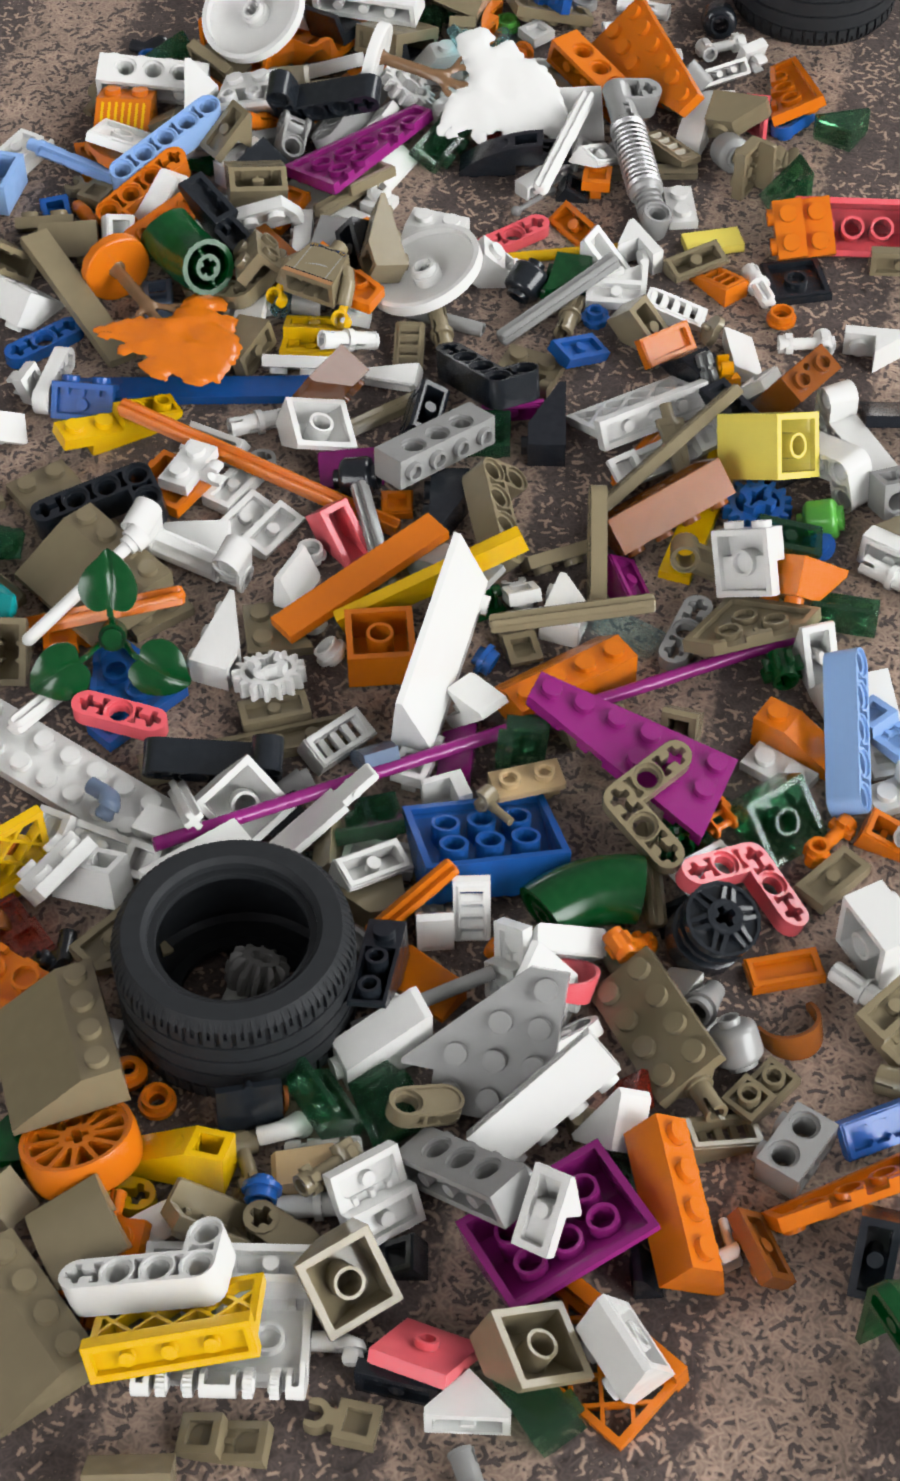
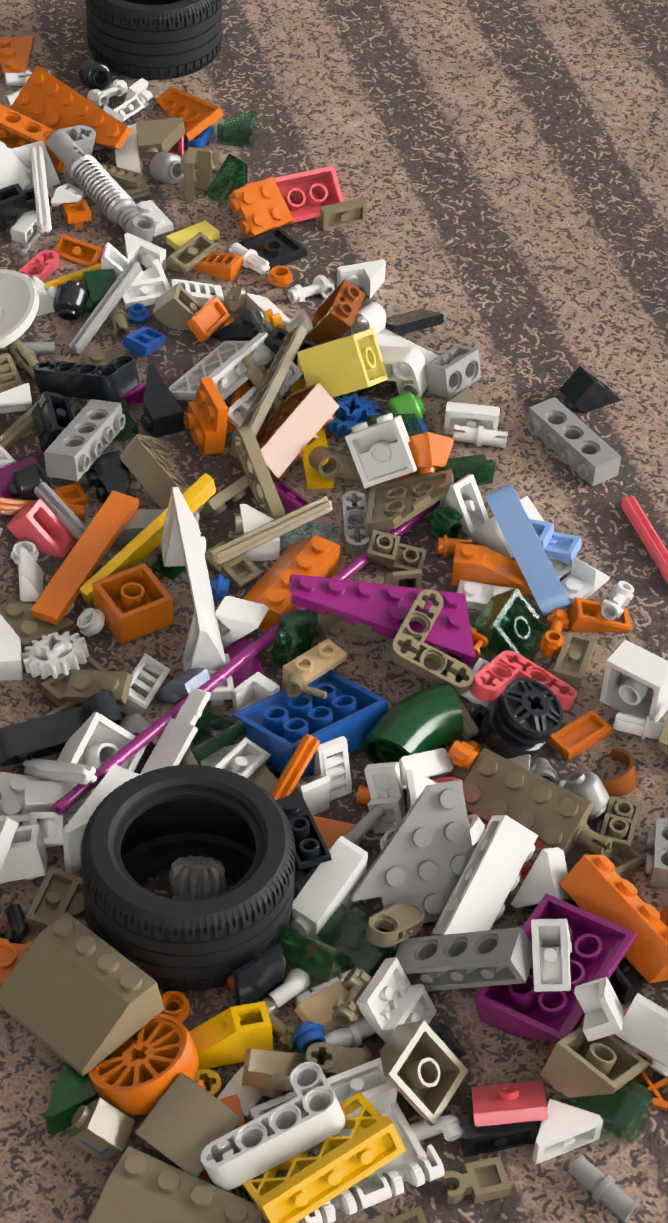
camera: 30 degrees left, 5 degrees down
(283, 721) = (89, 682): none -> dark tan plate
(520, 593) = (219, 530): white plate -> none
(567, 1294) = (601, 1009): none -> white panel
(570, 189) = (59, 226): black slope -> none
(583, 461) = (207, 418): none -> orange plate
(701, 687) = (387, 551): none -> dark tan slope
(767, 690) = (447, 546): none -> orange pin

